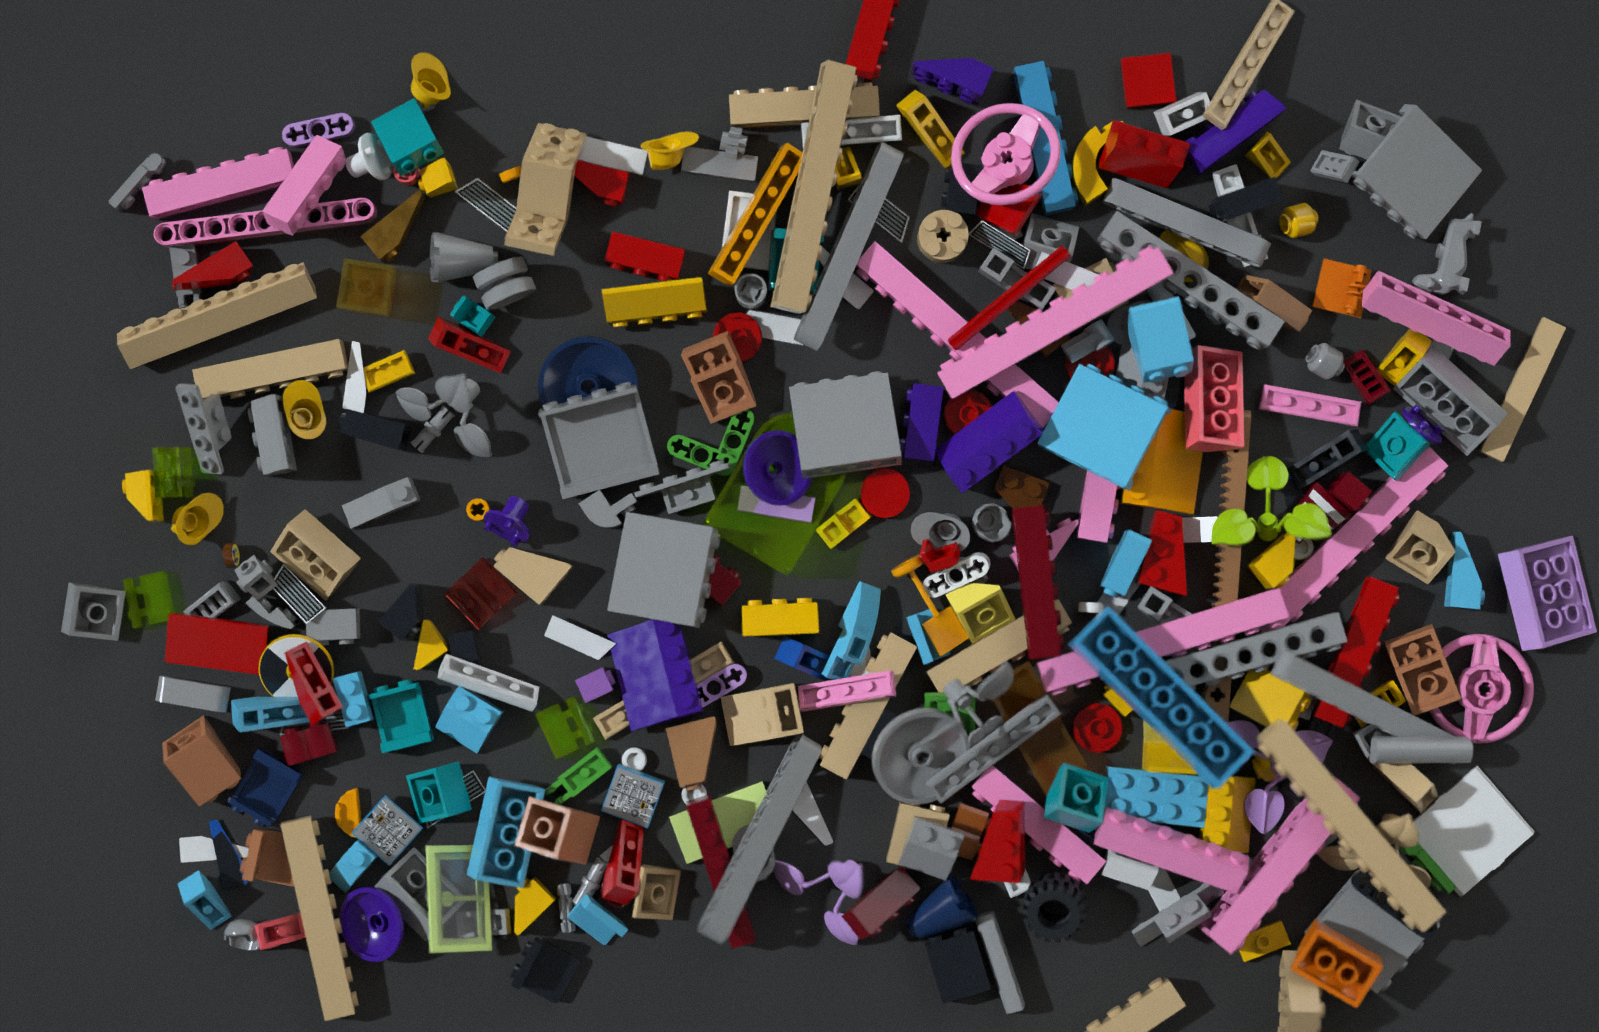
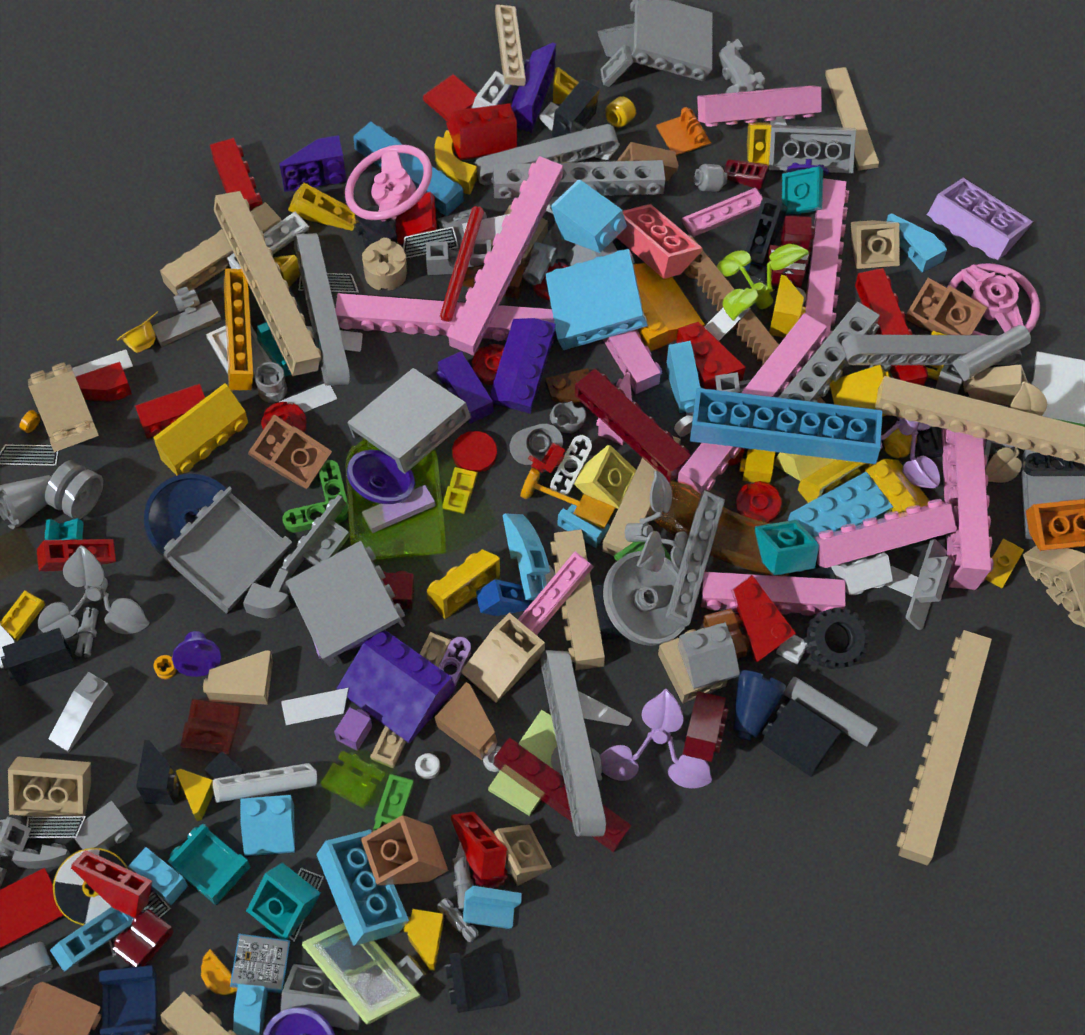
camera: 35 degrees left, 25 degrees down
(633, 795) = (447, 791): tile -> none

